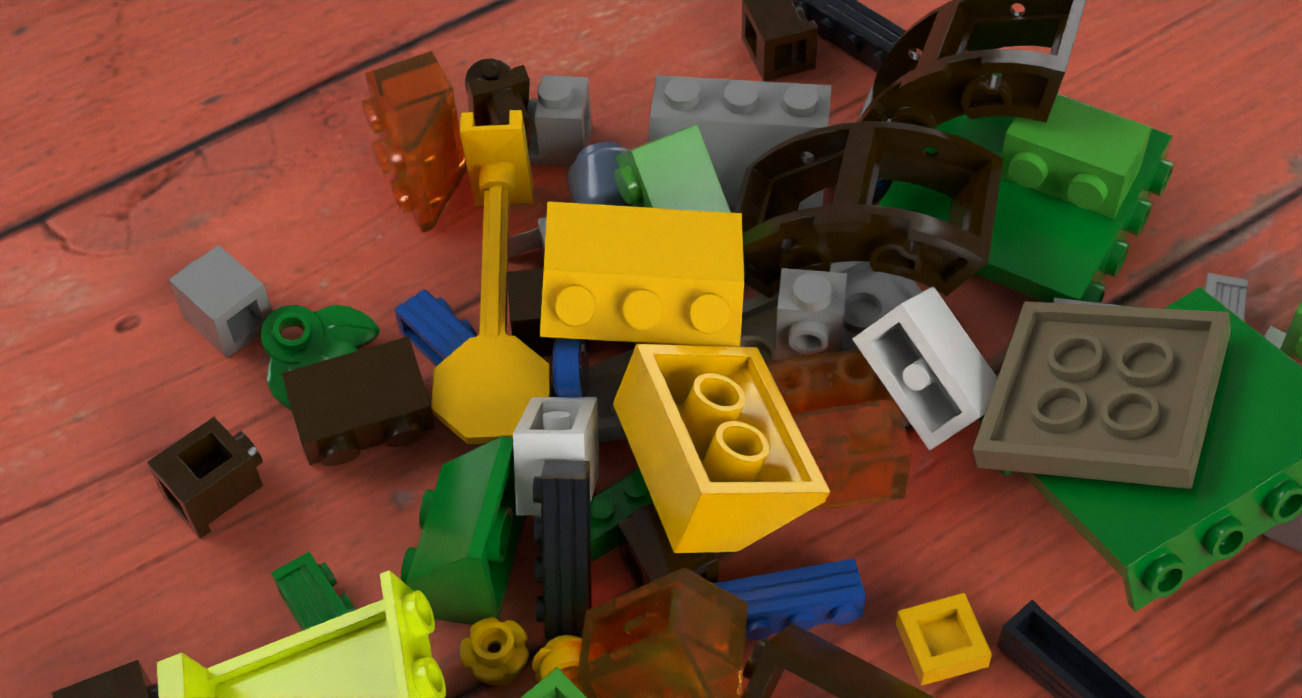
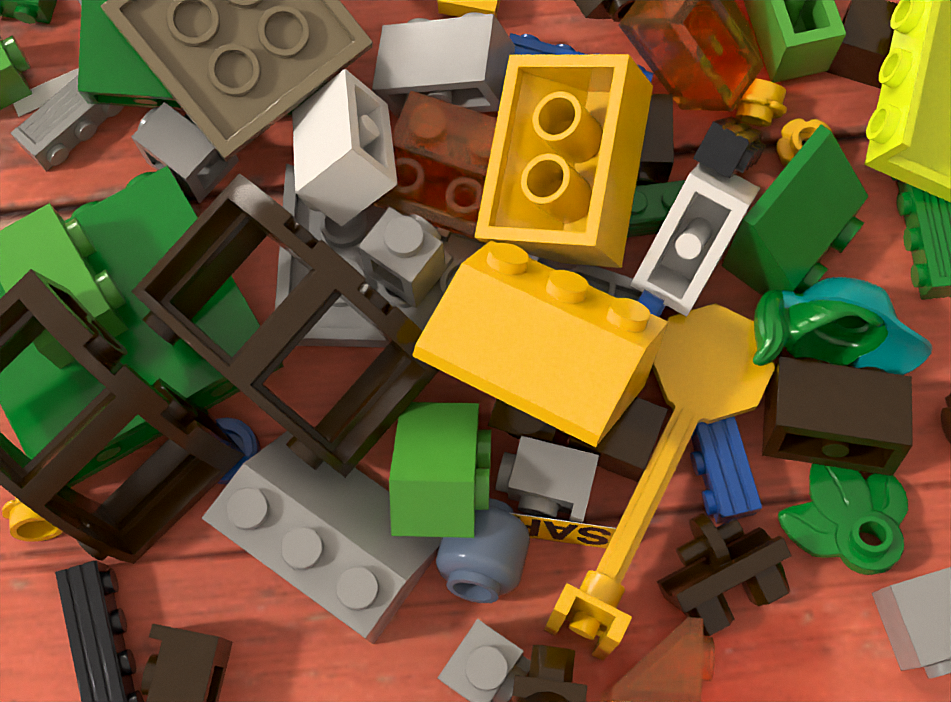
camera: 150 degrees left, 20 degrees up
(389, 476) = (838, 323): none -> green hair
(408, 259) = (719, 561): none -> dark brown hips
(903, 515) = (444, 59): none -> brick

